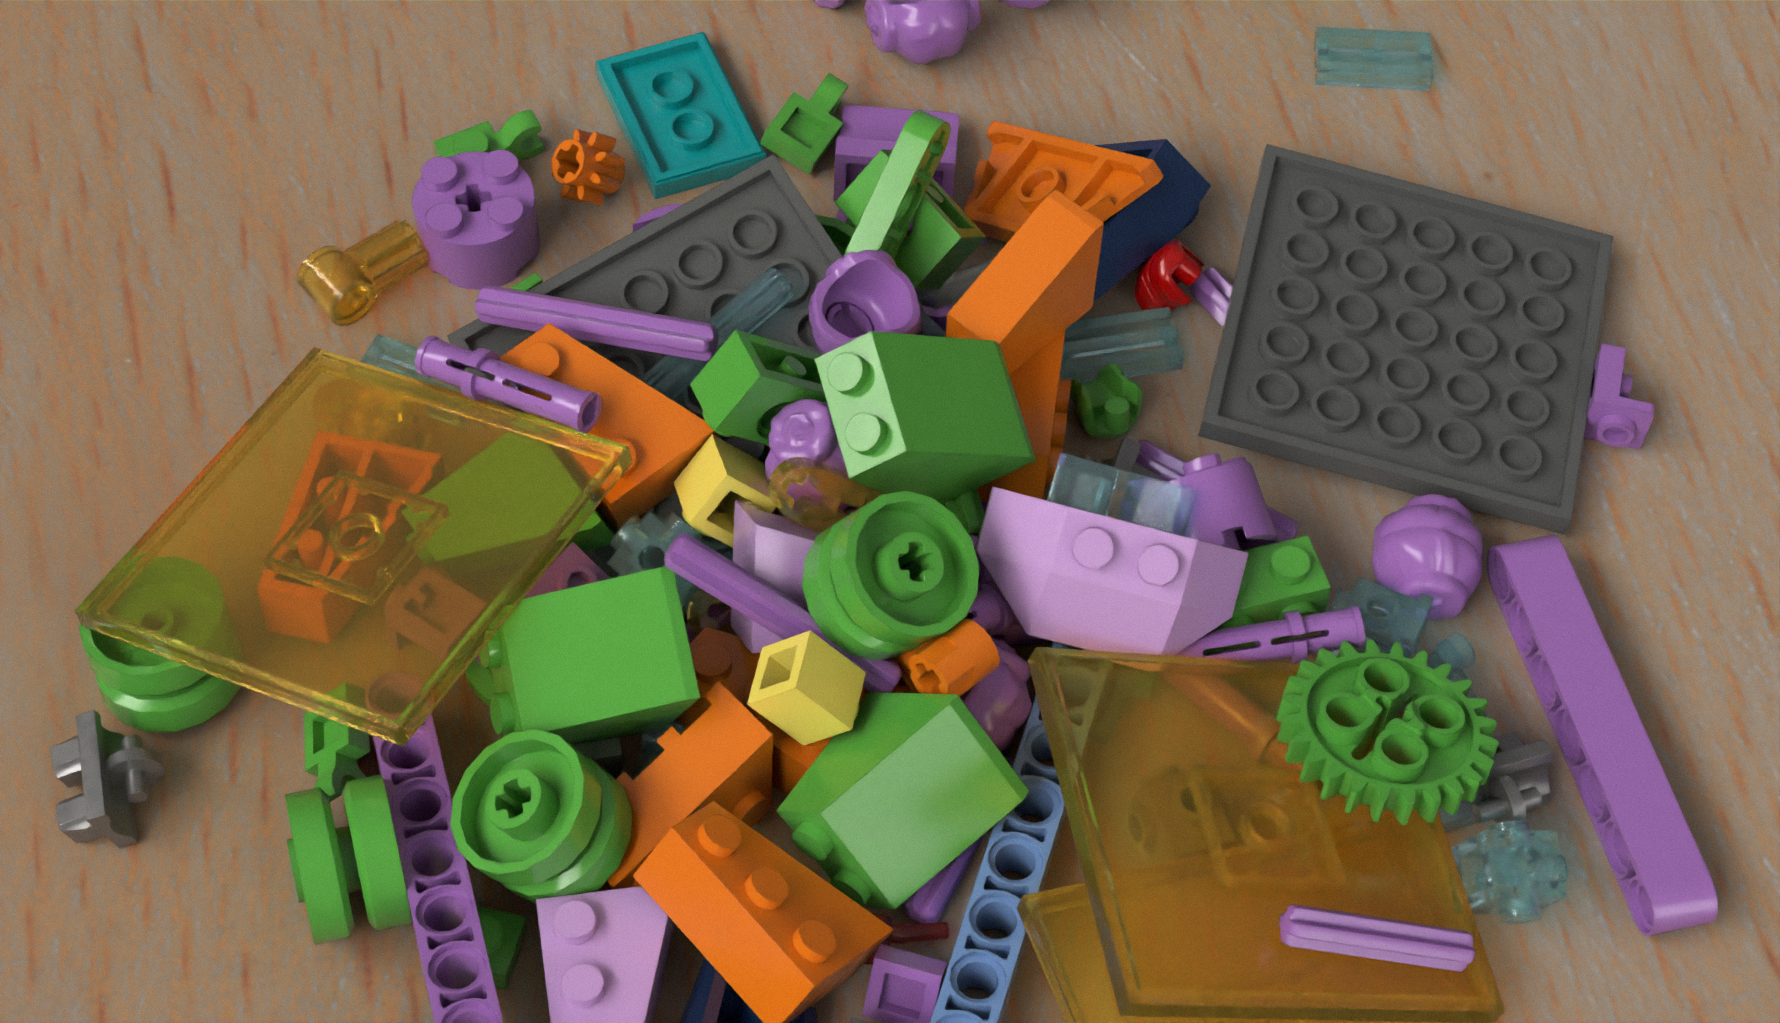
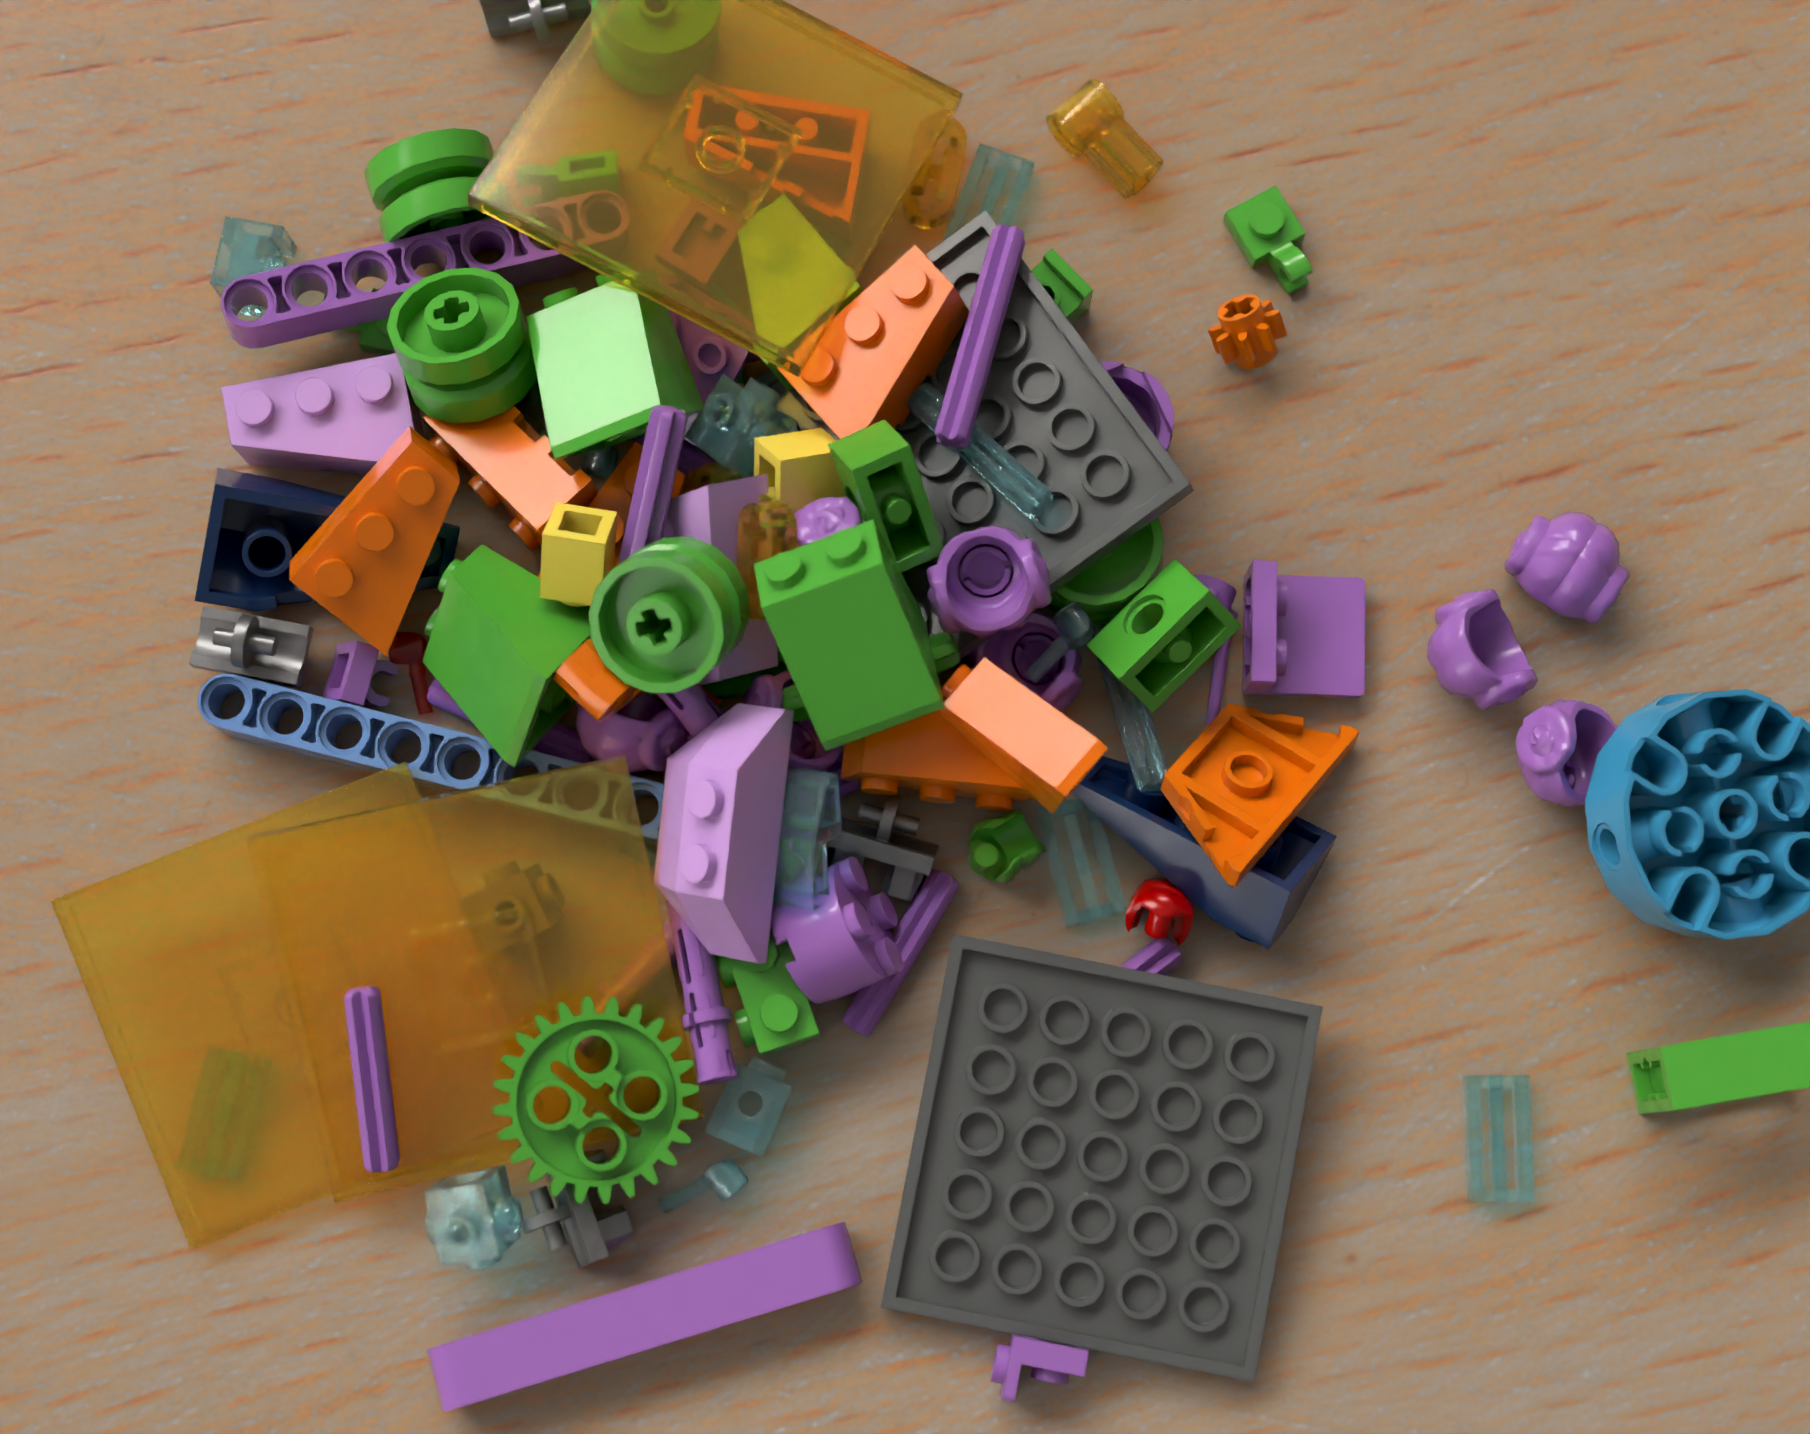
camera: 90 degrees right, 25 degrees up
(448, 363) = (888, 236): medium lavender pin -> none
(476, 217) = (1143, 246): medium lavender brick -> none
(679, 114) = (1344, 420): teal tile -> none
(807, 128) = (1325, 539): bright green plate -> none
(901, 185) = (1145, 607): bright green beam -> none
(1430, 551) = (829, 1159): medium lavender hair -> none

